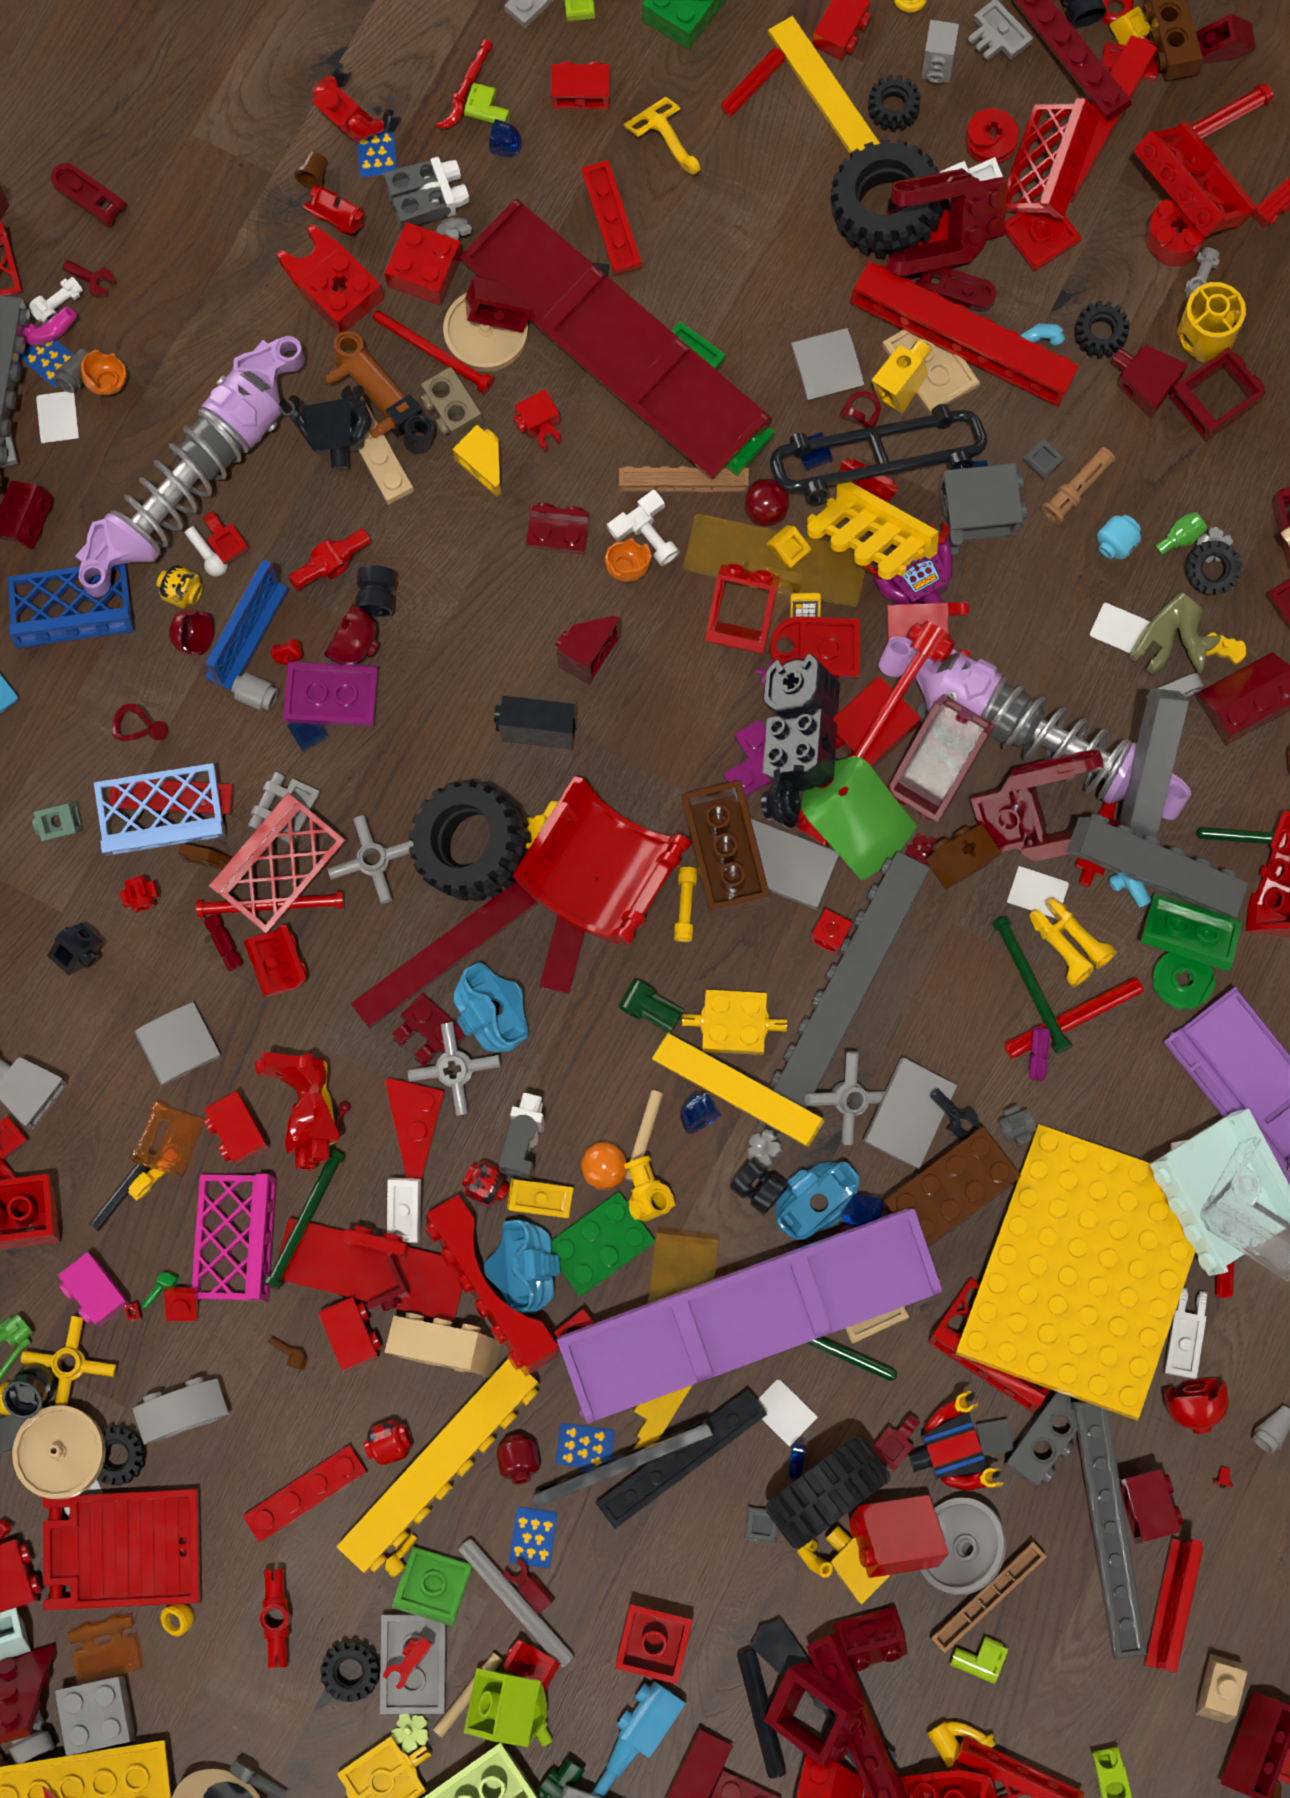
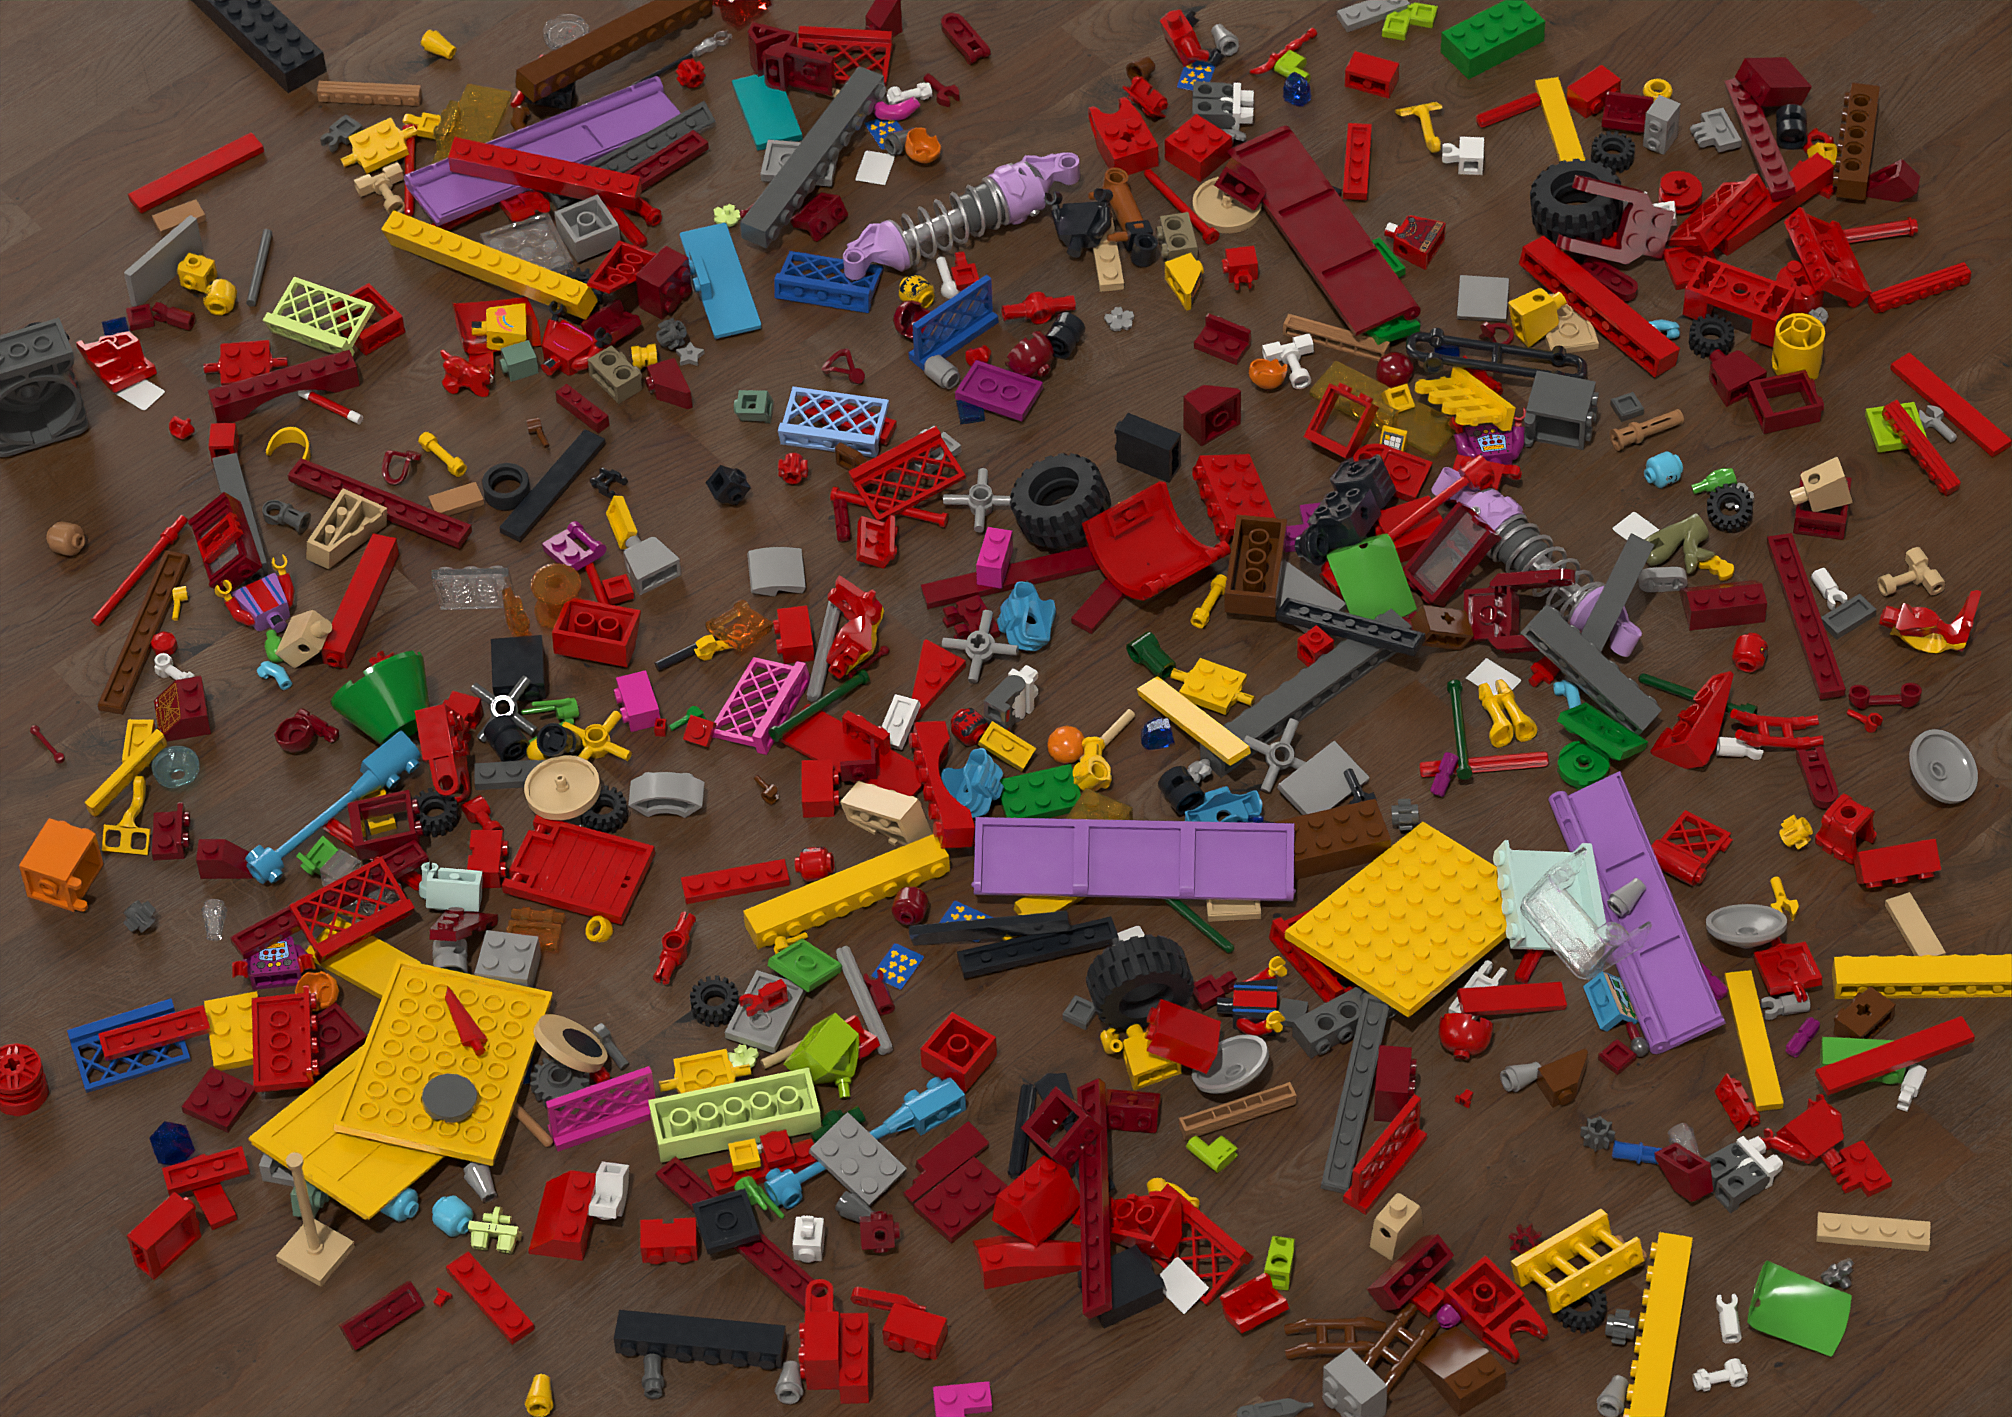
camera: 20 degrees right, 25 degrees down
(277, 1138) = (825, 642): none -> light grey axle
(391, 93) = (1224, 40): none -> light grey cone
(423, 943) = (994, 557): none -> dark pink brick
(426, 538) = (1119, 319): none -> light grey plant
(656, 747) = (1230, 489): none -> red bracket
(721, 308) = (1417, 239): none -> torso
(734, 165) = (1468, 155): none -> white brick
(863, 895) = (1351, 626): none -> black tile
(891, 43) = (1626, 111): none -> dark red bracket
(1089, 271) = (1763, 302): none -> red plate
(1228, 1334) = (1512, 998): none -> red tile

